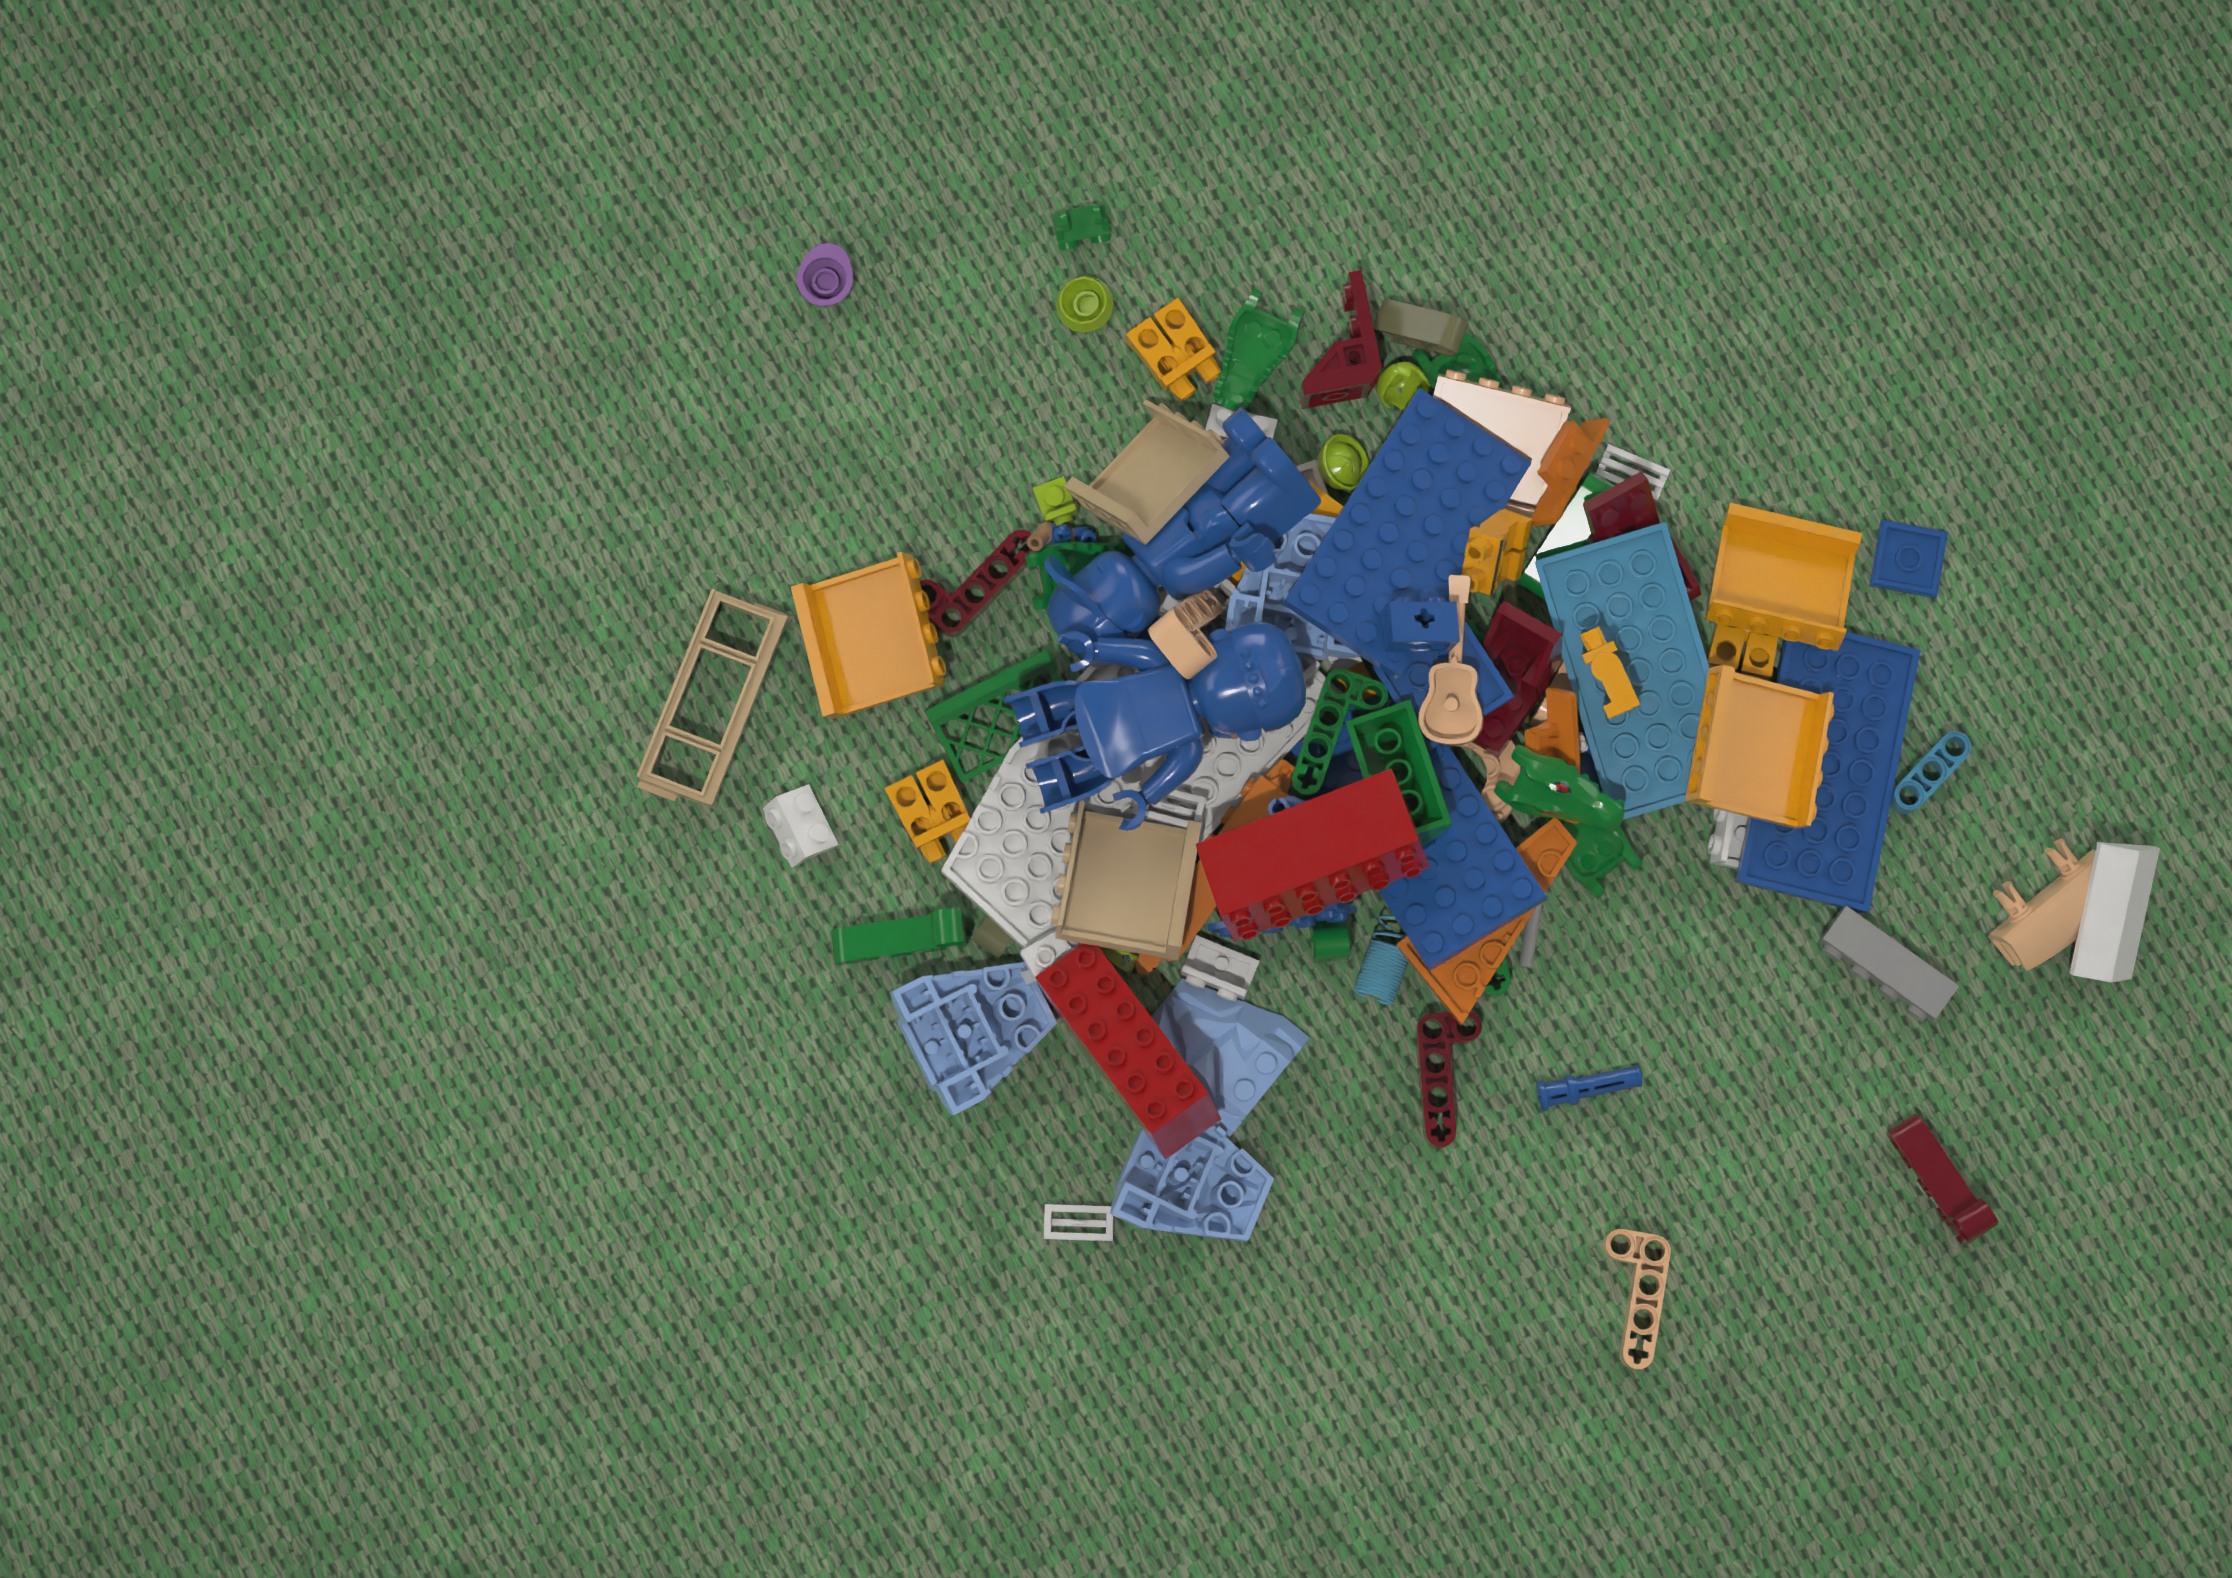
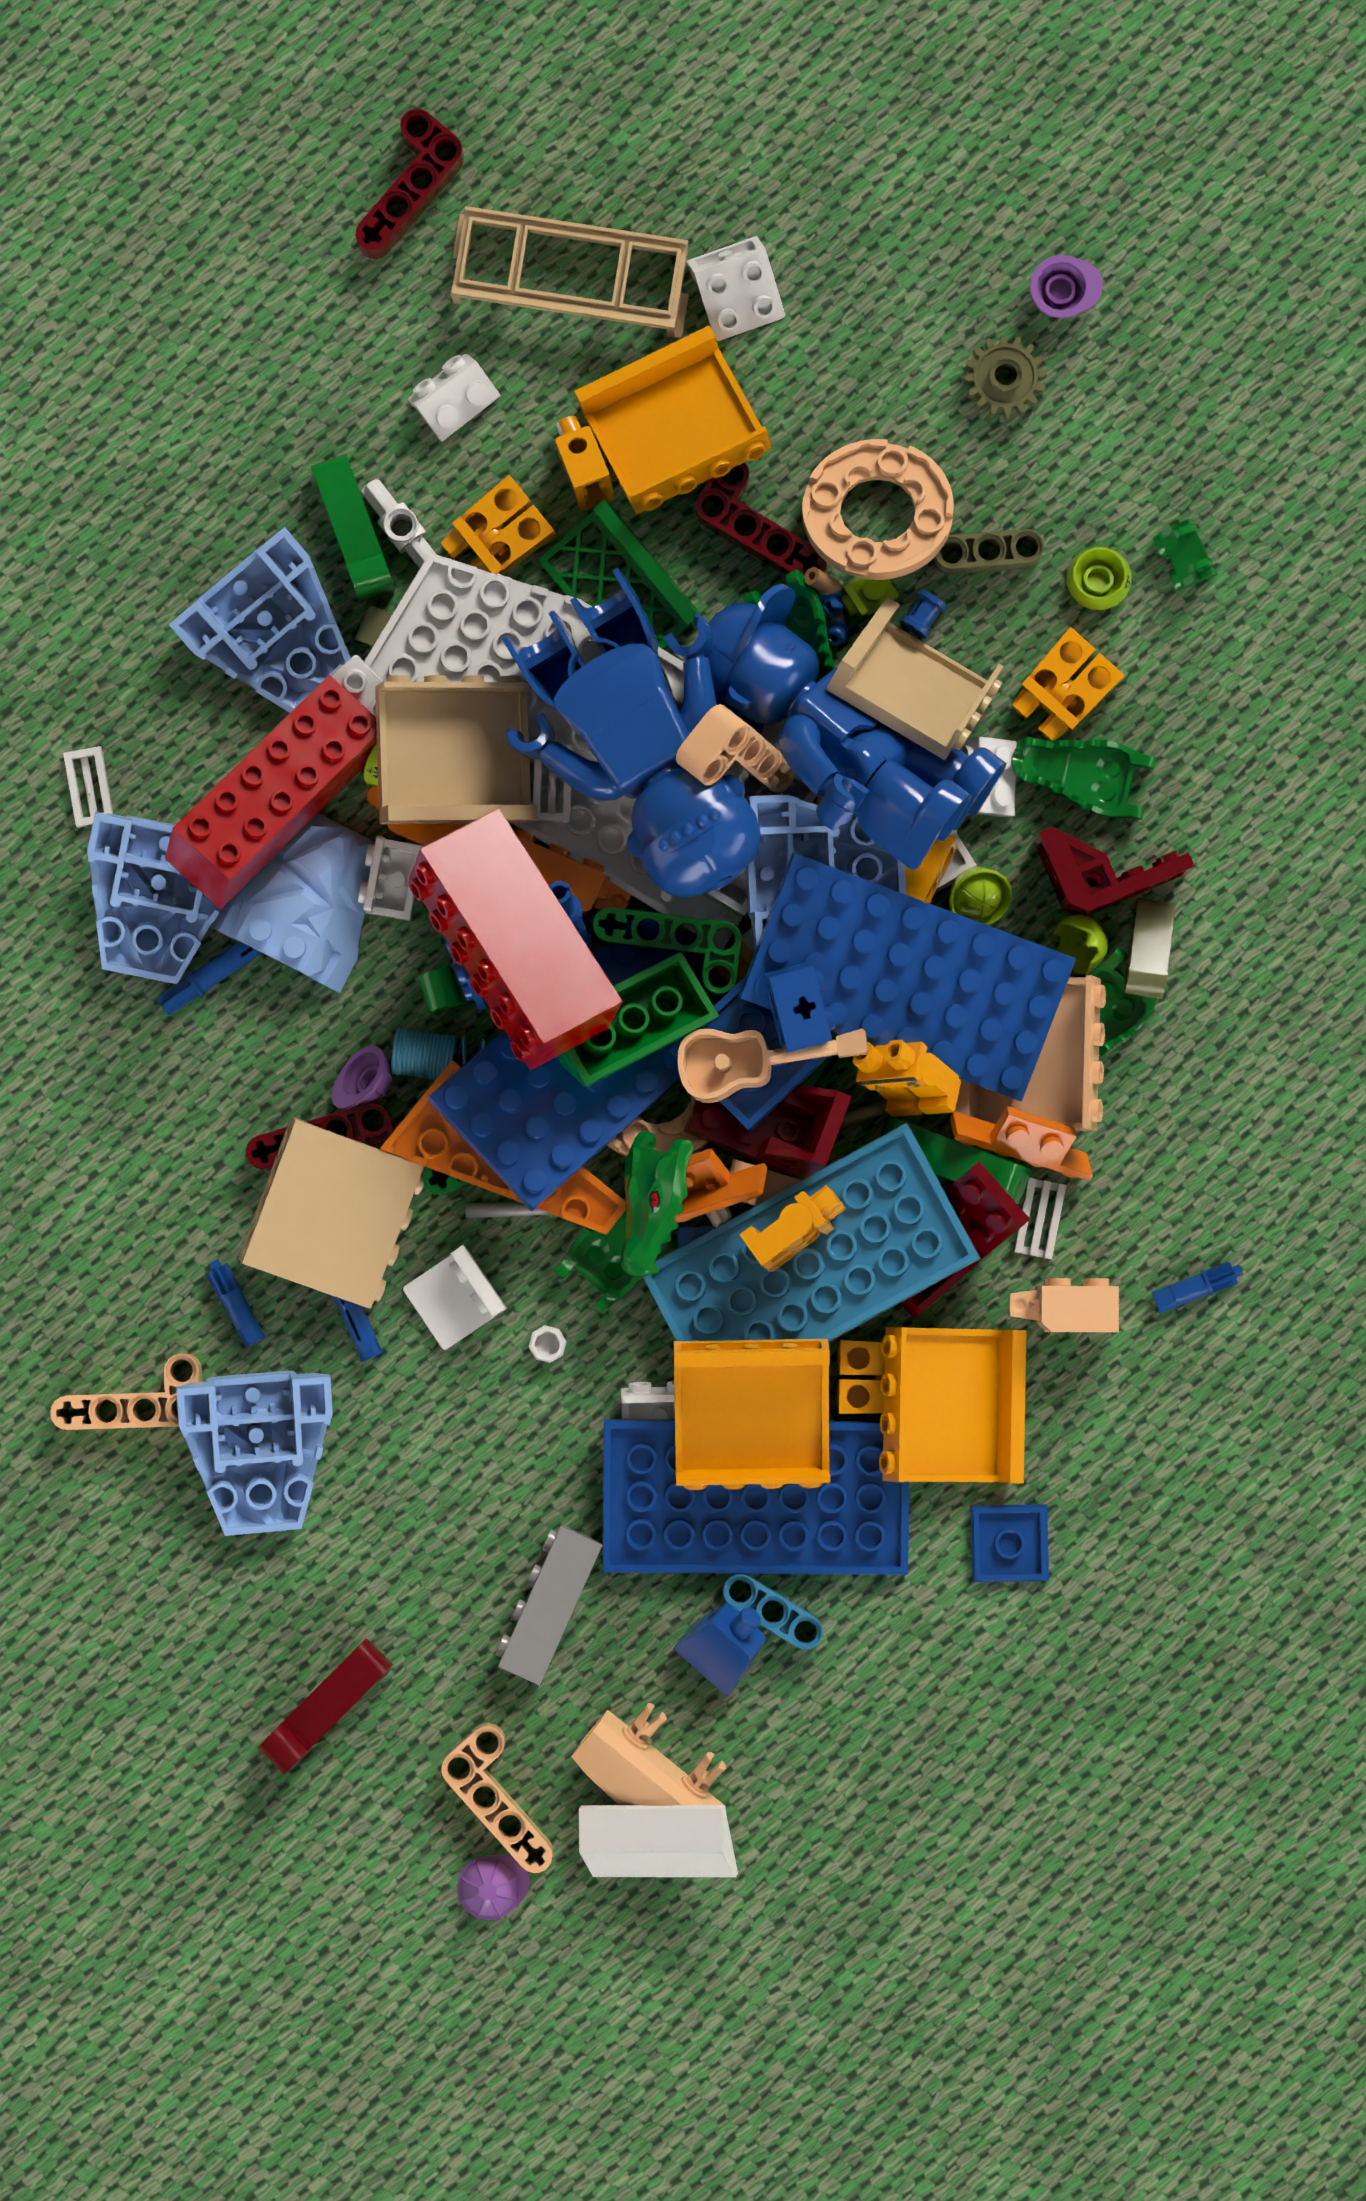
camera: 80 degrees right, 5 degrees up
(608, 828) = (403, 191): none -> dark red beam
(758, 557) = (737, 288): none -> white bracket
(891, 903) = (389, 514): none -> white axle
(898, 361) = (1005, 397): none -> olive gear
(900, 719) = (583, 464): none -> light orange torso
(951, 448) = (887, 462): none -> light nougat plate
(1042, 376) = (1003, 541): none -> olive beam
(1084, 459) = (923, 614): none -> blue bush
(1272, 1152) = (206, 977): none -> blue axle
(1392, 1031) = (362, 1079): none -> medium lavender piece
(1508, 1081) = (332, 1213): none -> tan panel
(1567, 1187) = (234, 1302): none -> blue piece
(1601, 991) = (454, 1298): none -> white bracket
(1658, 919) = (547, 1344): none -> white tile
(1699, 1189) = (257, 1444): none -> light blue wedge
(1718, 354) = (1197, 1286): none -> blue piece
(1719, 459) = (1068, 1307): none -> light nougat hinge
(1953, 820) = (723, 1645): none -> blue torso
(2055, 1043) = (503, 1804): none -> light nougat beam
(2123, 1068) = (492, 1886): none -> medium lavender piece

